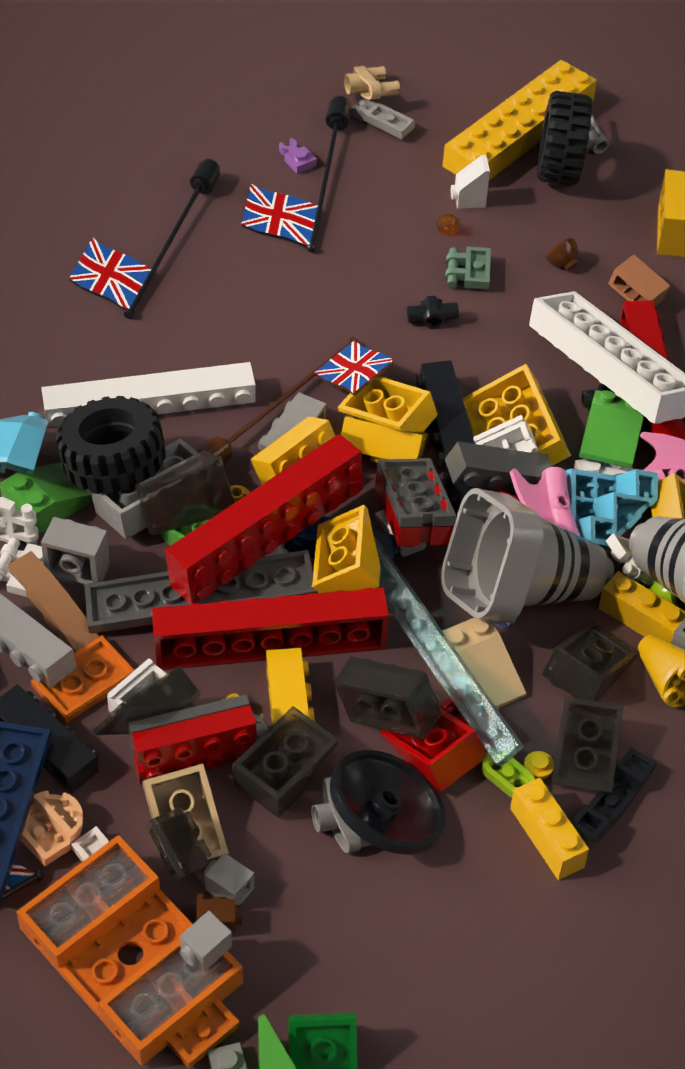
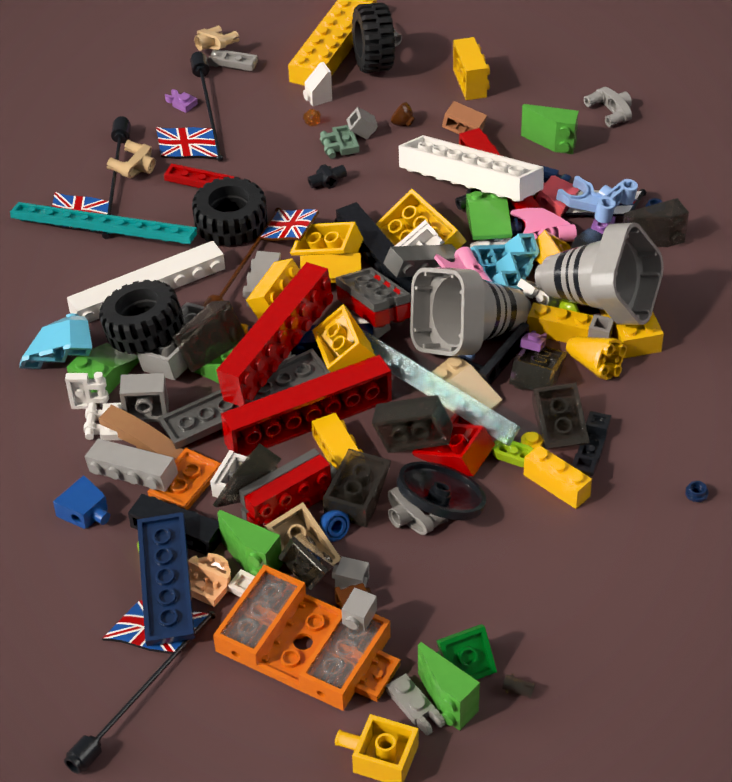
camera: 15 degrees left, 5 degrees down
(121, 802) = (249, 543): none -> bright green slope
(131, 299) = (104, 222): none -> teal plate
(209, 227) = (139, 162): none -> tan connector
(236, 803) = (334, 525): none -> blue brick
(277, 271) = (191, 176): none -> red plate
(288, 350) = (235, 227): none -> black tyre
(506, 251) = (362, 123): none -> light grey brick
(549, 634) = (503, 356): none -> black piece
(599, 625) = (533, 341): none -> medium lavender plate
(643, 454) = (516, 226): none -> dark blue plate

